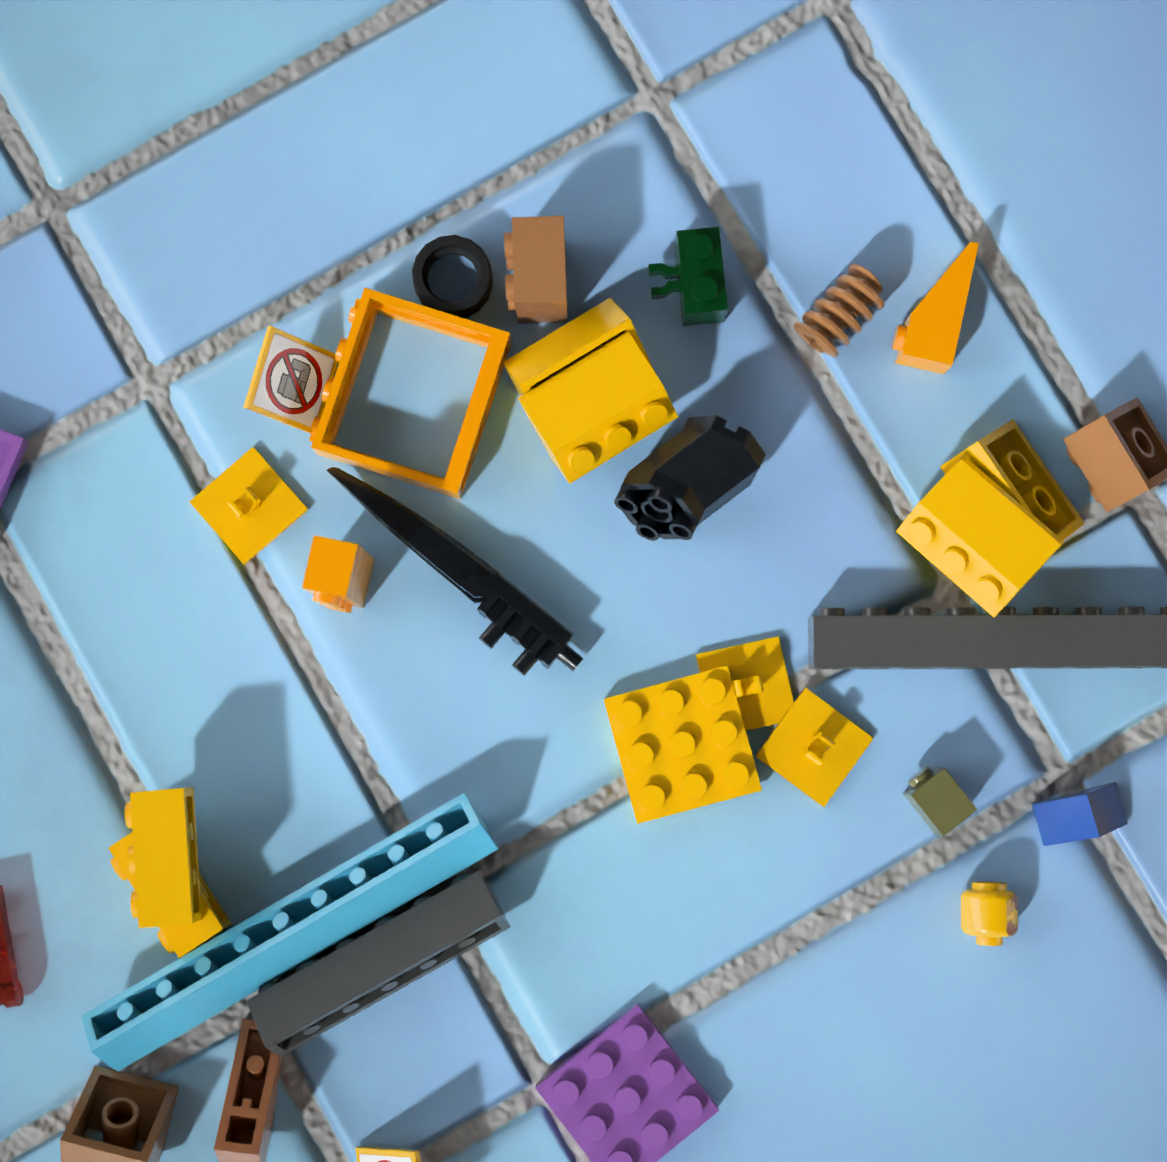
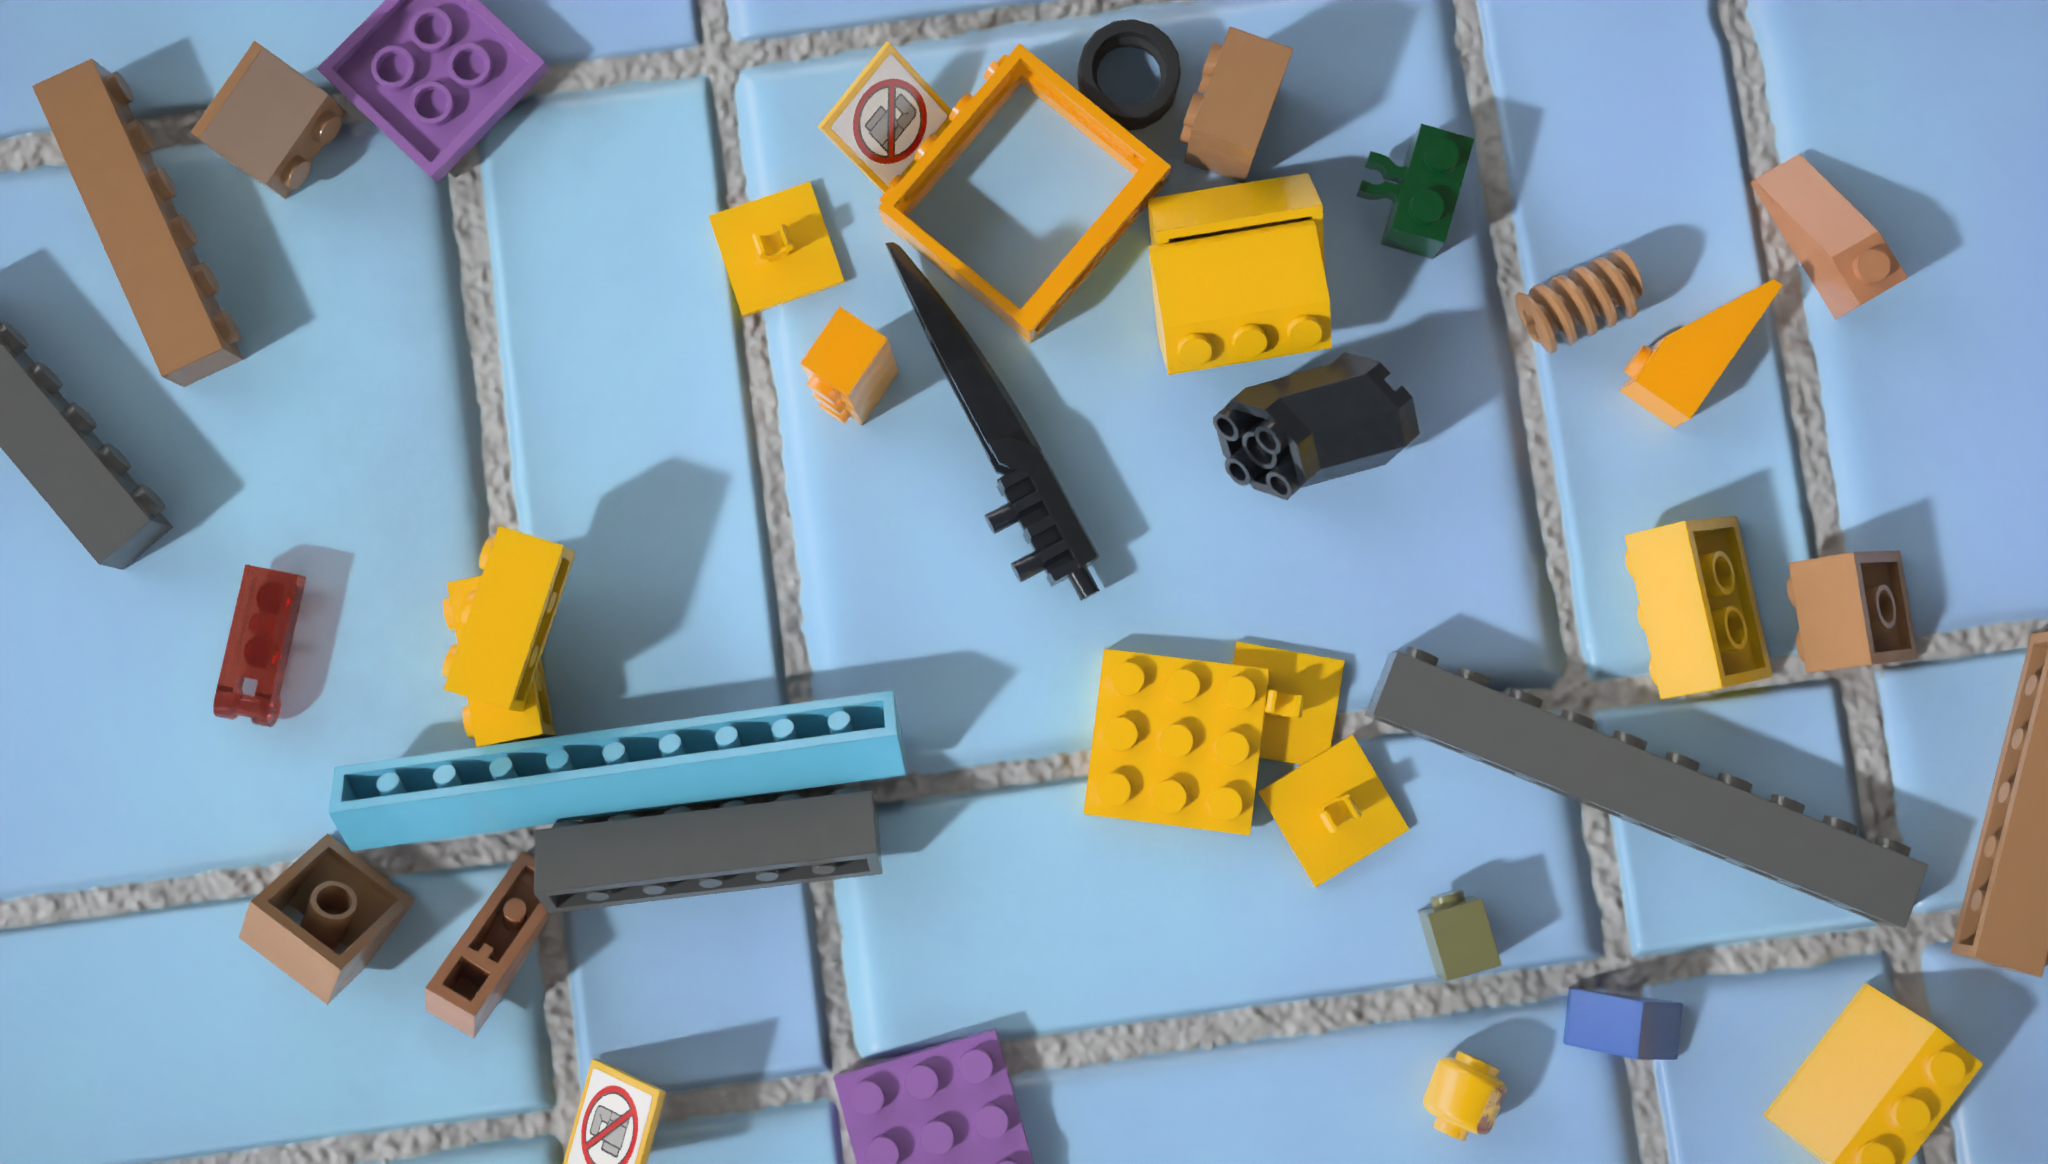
camera: 25 degrees right, 0 degrees up
(979, 536) = (1639, 637): yellow slope -> none
(996, 194) = (1828, 236): none -> nougat slope

